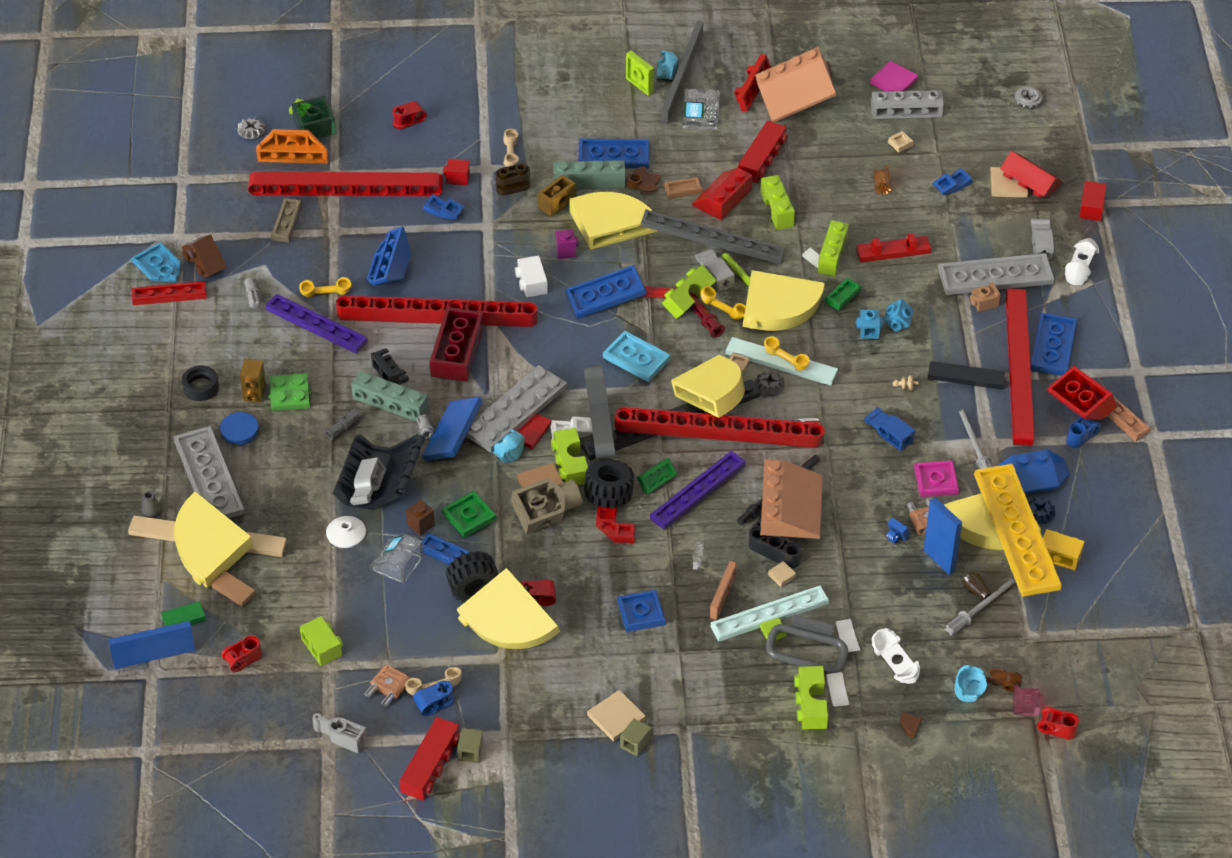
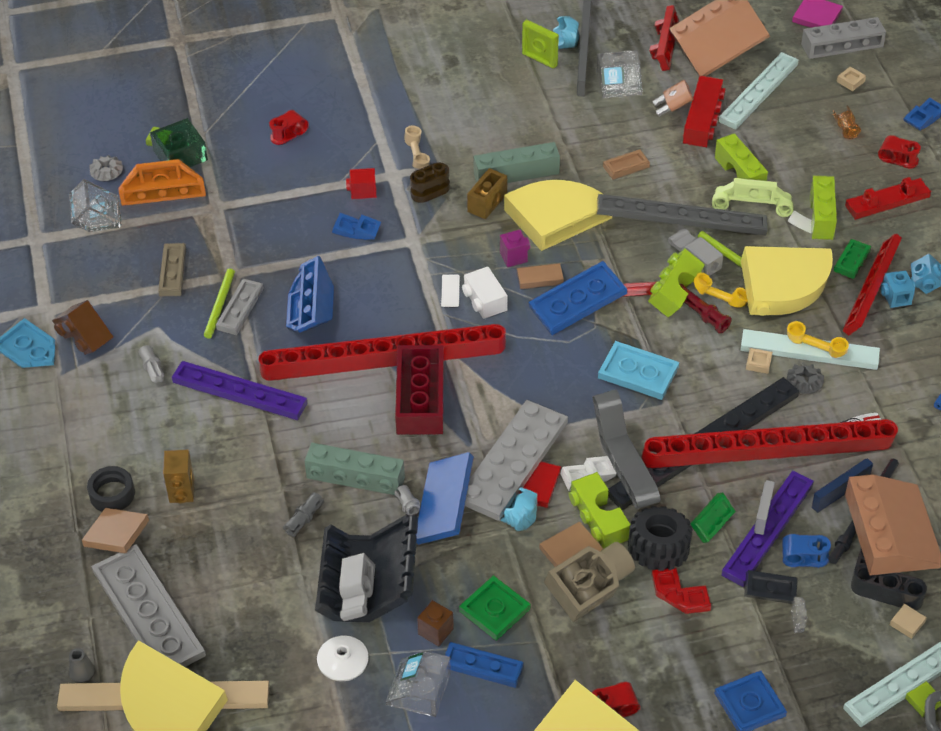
camera: 10 degrees left, 0 degrees up
(169, 293) = (47, 380): red tile -> none
(197, 413) = (115, 530): none -> medium nougat tile
(234, 160) = (94, 207): none -> clear slope
(239, 428) = (173, 540): blue tile -> none
(289, 392) = (226, 482): bright green plate -> none
(320, 248) = (215, 314): none -> lime bar
(333, 258) = (239, 306): none -> light grey tile
(342, 287) = (219, 348): yellow bar -> none
(345, 183) = (232, 216): red beam -> none
(387, 367) = (341, 433): black hinge -> none
(470, 574) = (527, 695): black tyre -> none
(506, 270) = (450, 291): none -> white sticker
(581, 270) = (540, 276): none -> medium nougat tile
(633, 151) = (536, 132): blue tile -> none
(642, 180) = (578, 163): reddish brown plate -> none
(682, 532) = (770, 587): none -> black plate
(696, 473) = (764, 507): none -> light grey tile
(711, 386) = (746, 393): light yellow brick -> none
(718, 510) = (803, 550): none -> blue piece
(723, 590) = (846, 657): nougat tile -> none
(724, 193) = (676, 162): red slope -> none
(740, 136) = (675, 98): none -> nougat piece
(756, 471) = (837, 487): none -> dark blue tile
(781, 227) = (753, 191): none -> yellowish green plate
(817, 140) = (758, 91): none -> light aqua tile
(847, 320) = (872, 284): none -> red tile
(917, 211) = (898, 151): none -> red piece

